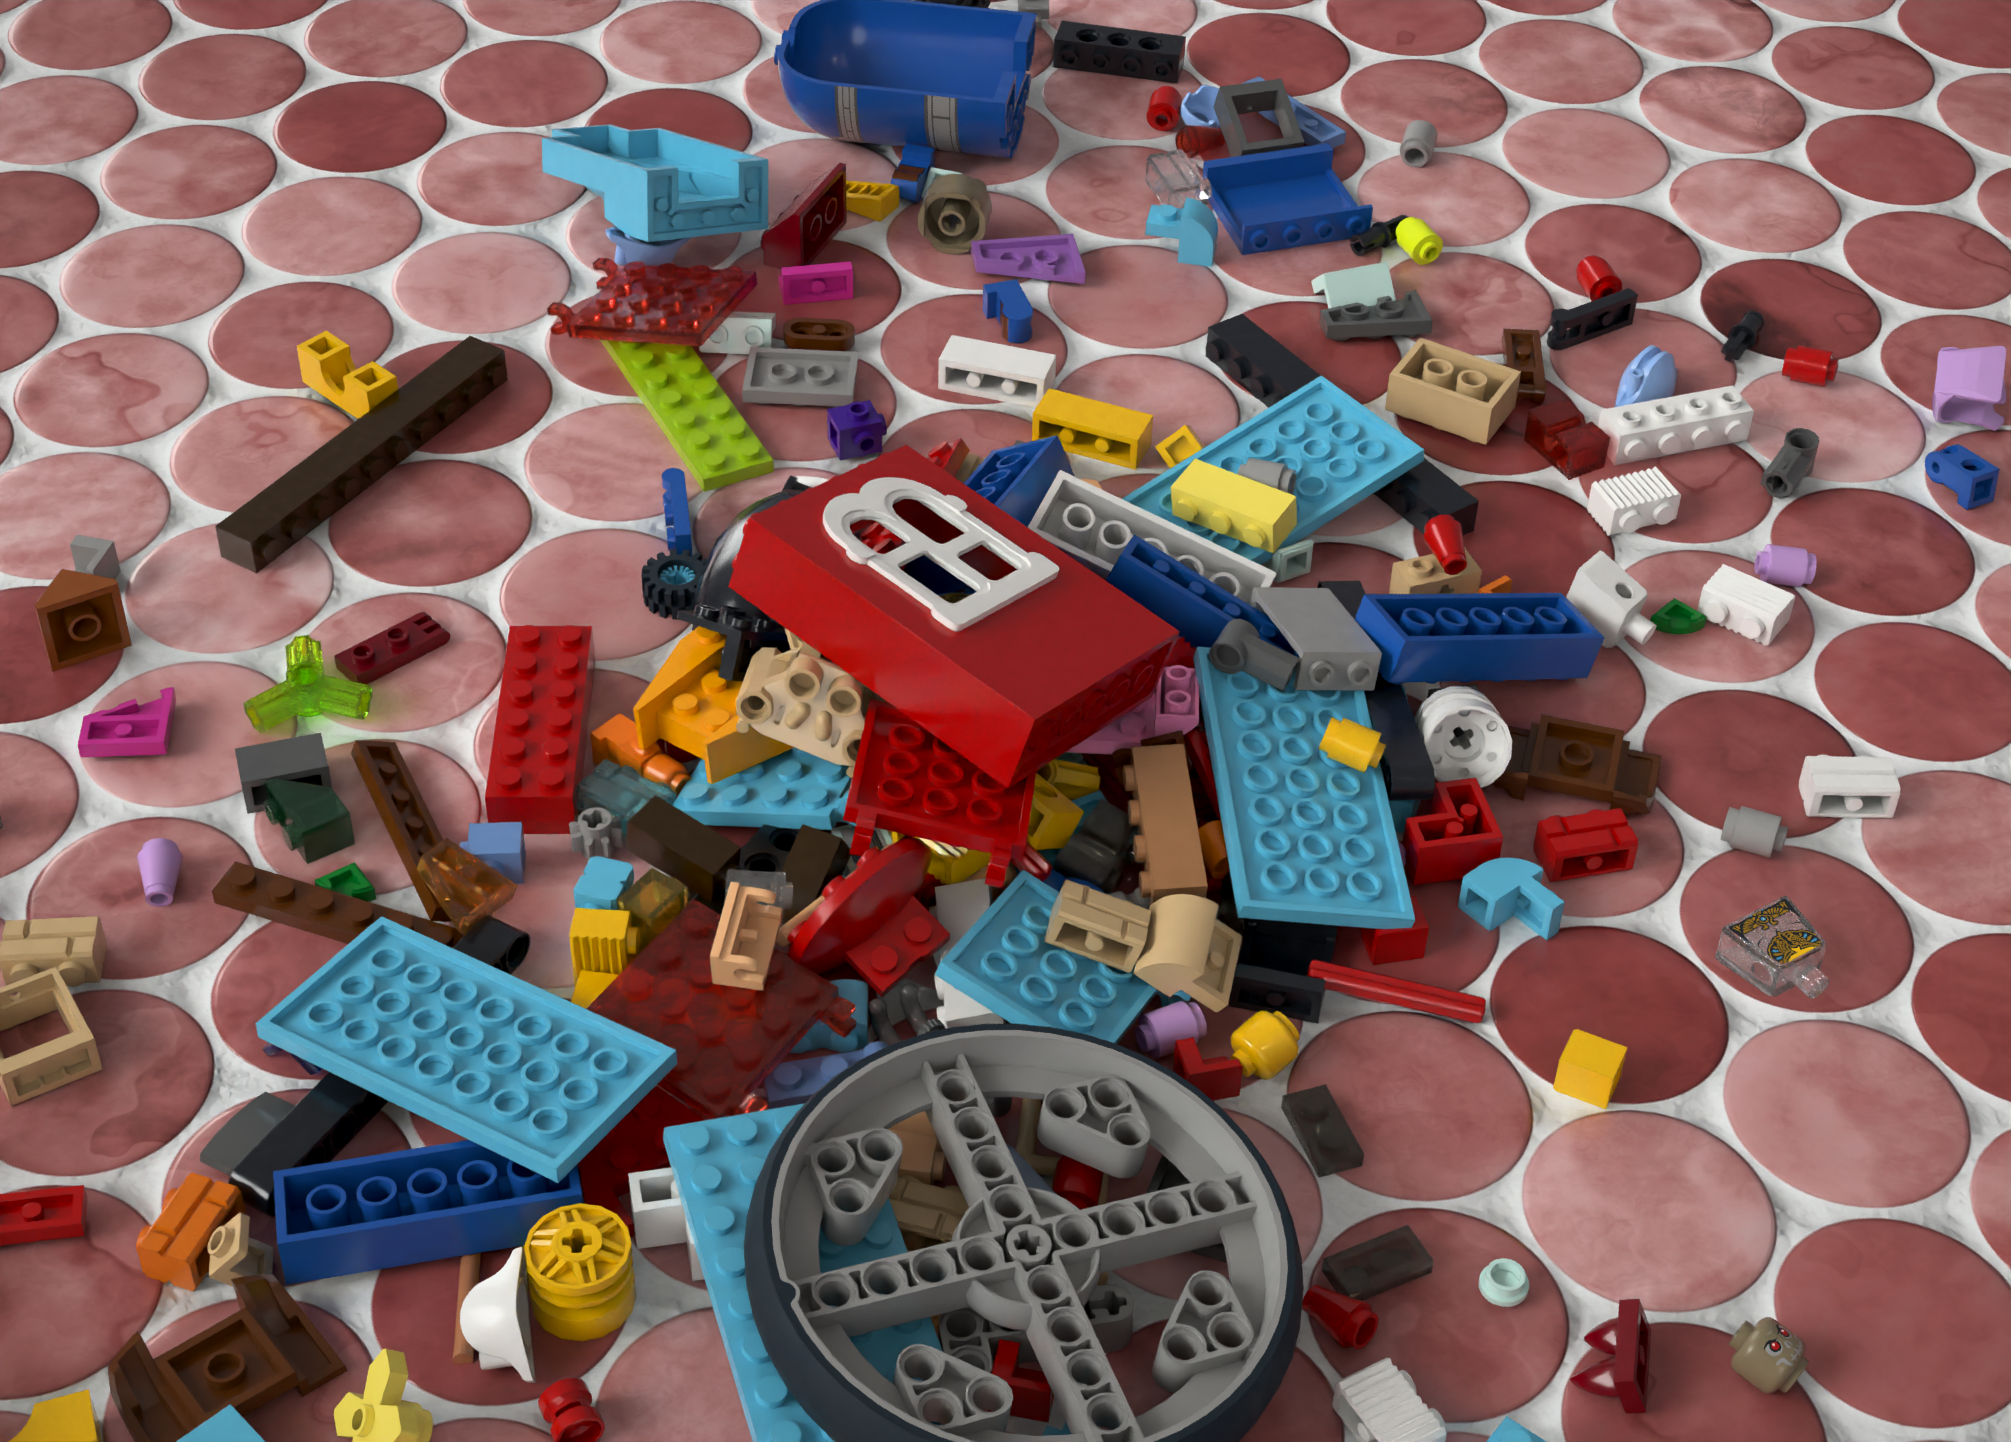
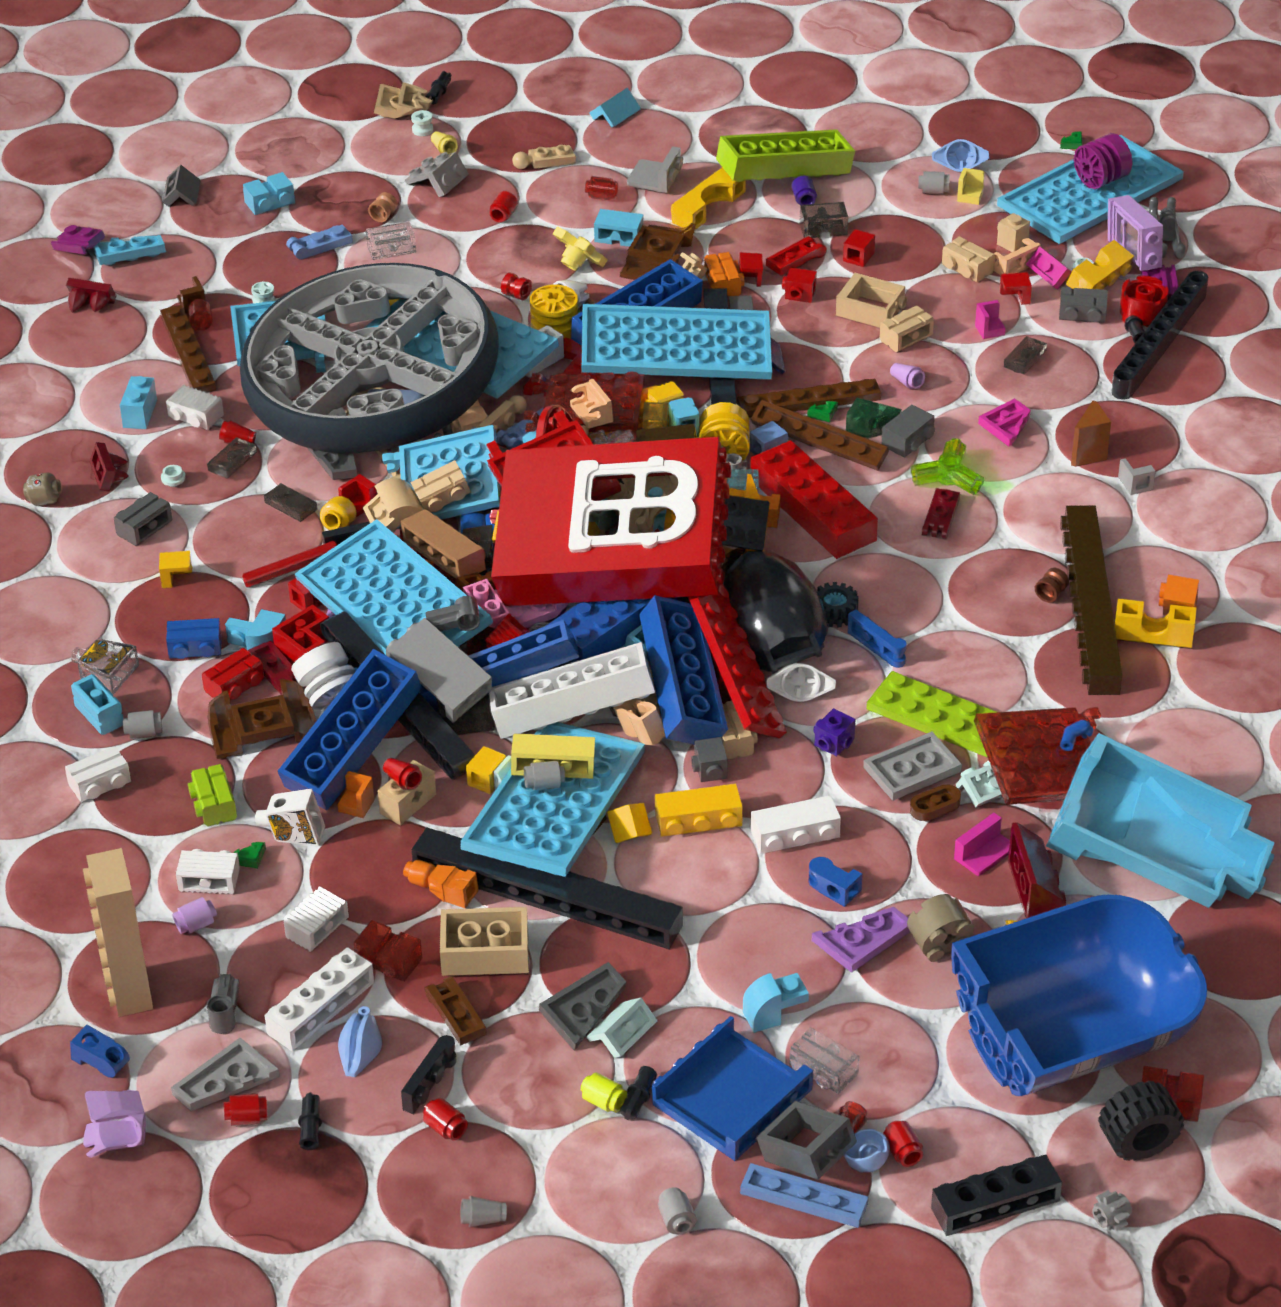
camera: 150 degrees right, 0 degrees up
(96, 1133) = (800, 285): none -> red brick
(122, 1210) = (751, 265): none -> red panel
(288, 376) = (1178, 591): none -> orange brick
(391, 484) = (1051, 585): none -> copper wheel
(464, 884) = (761, 408): clear orange wing -> none
(554, 857) = (729, 424): none -> yellow wheel
(611, 285) = (1079, 728): none -> blue arm
(1314, 564) = (481, 769): none -> yellow panel
(1352, 744) = (373, 610): yellow brick -> none
(1457, 468) = (443, 881): none -> orange piece
(1516, 827) = (274, 664): none -> dark red hinge
(1604, 1200) = (142, 518): none -> dark grey brick
(1608, 209) = (482, 1211): none -> light grey cone
(1616, 931) = (194, 638): none -> blue brick
(1696, 692) = (213, 795): none -> lime brick
(1817, 871) = (97, 704): none -> medium azure brick
(1820, 408) = (224, 1075): none -> light grey wing
(1924, 447) = (117, 932): none -> tan brick

